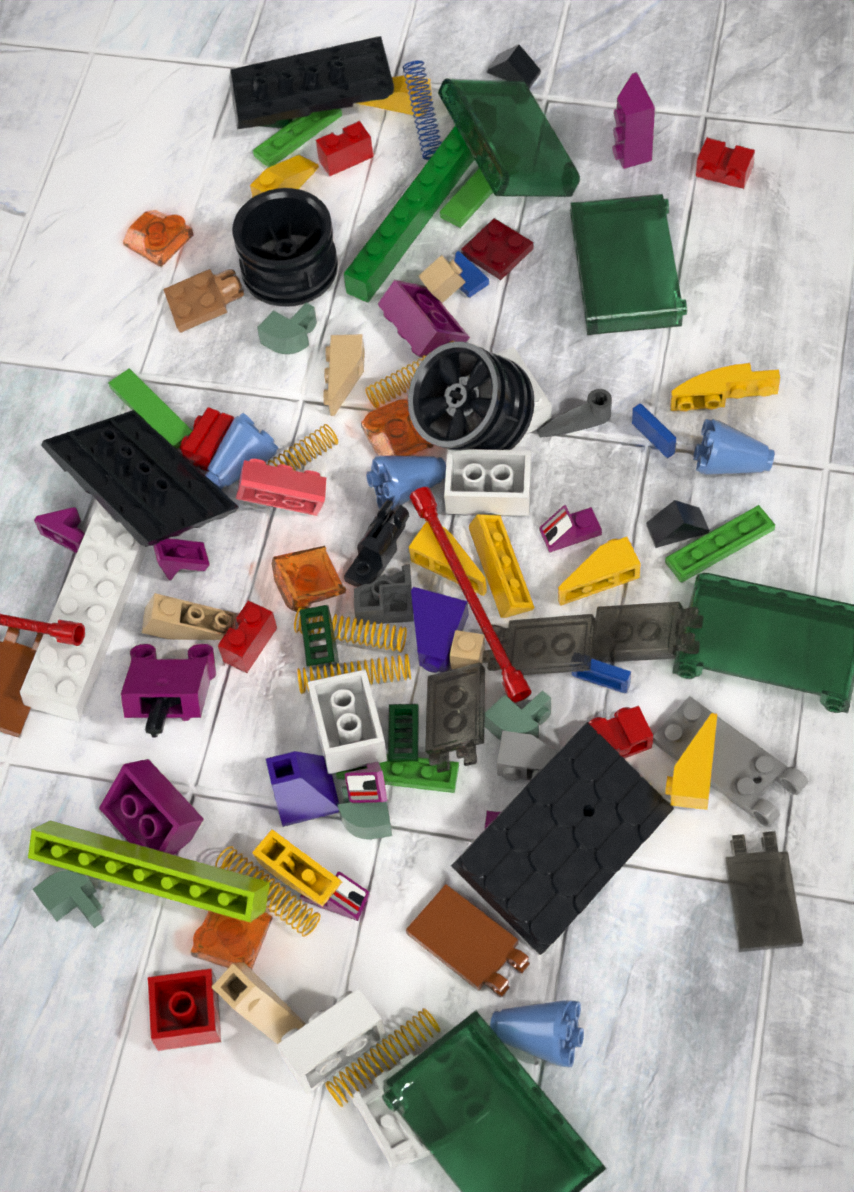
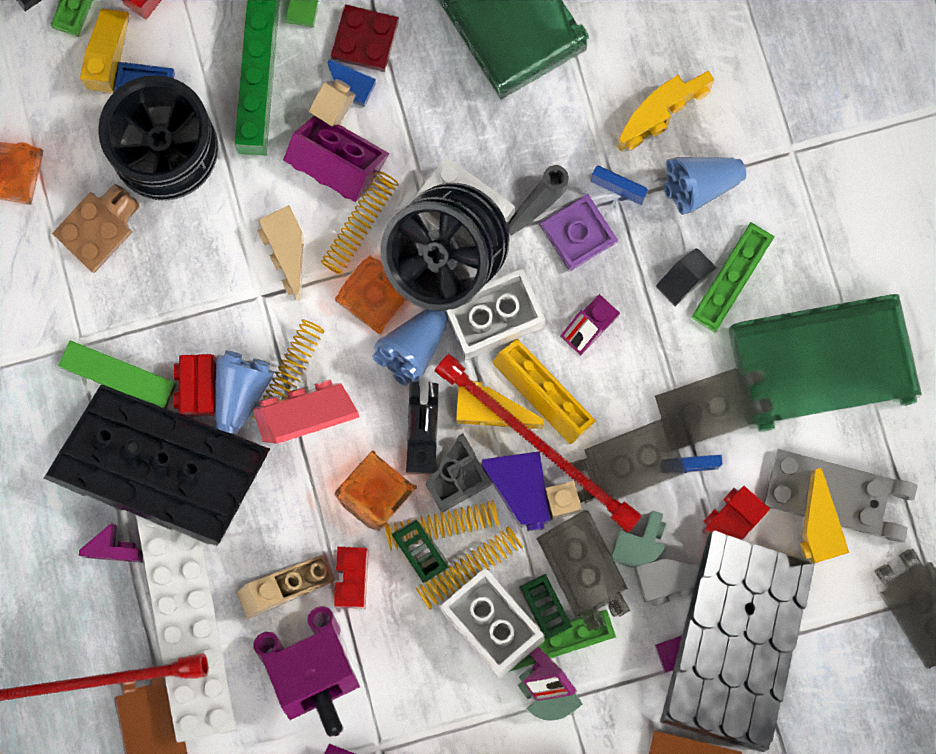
camera: 30 degrees left, 20 degrees up
(180, 554) = (246, 522): magenta slope -> none
(286, 334) = (211, 233): sand green brick -> none
(302, 787) = (484, 703): dark purple slope -> none
(599, 456) = (578, 232): none -> medium lavender tile
(604, 569) = (647, 349): yellow slope -> none

